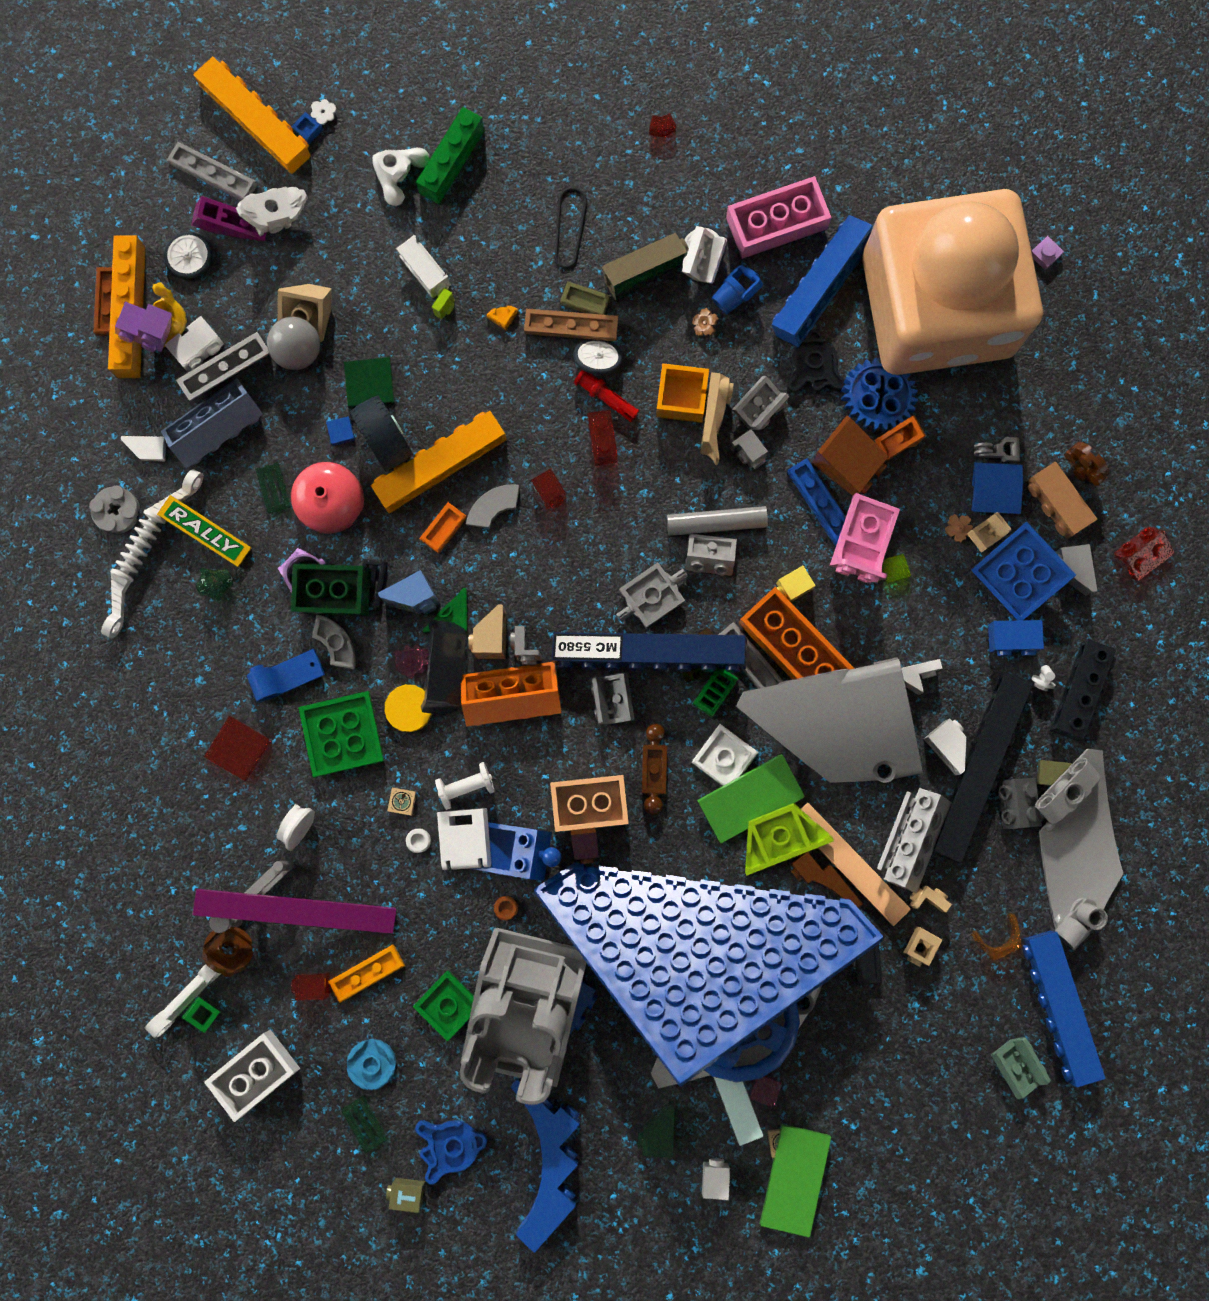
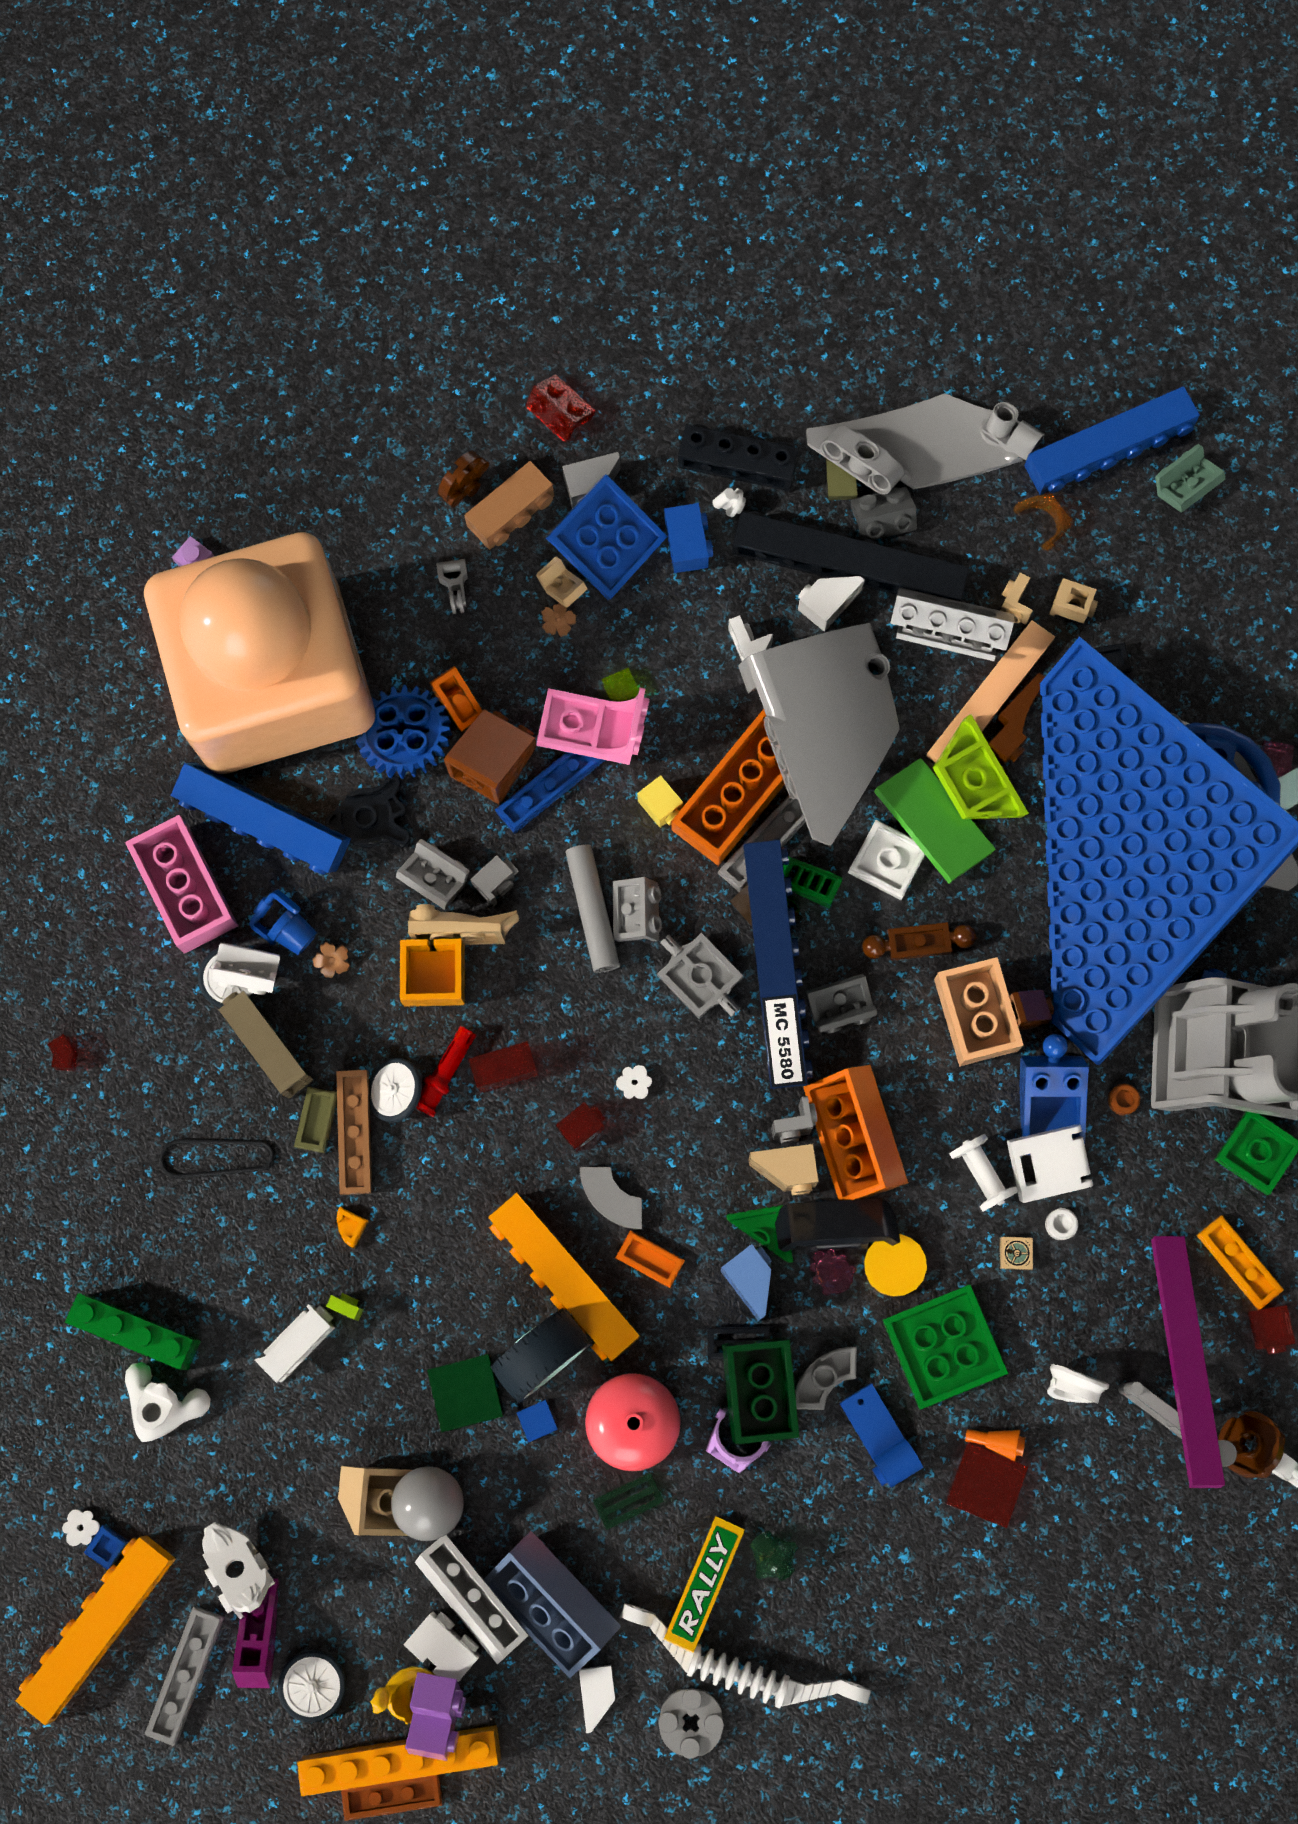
camera: 100 degrees left, 5 degrees down
(264, 766) = (1005, 1442): none -> orange cone
(577, 528) = (637, 1074): none -> white plant
(997, 488) = (503, 580): blue slope -> none

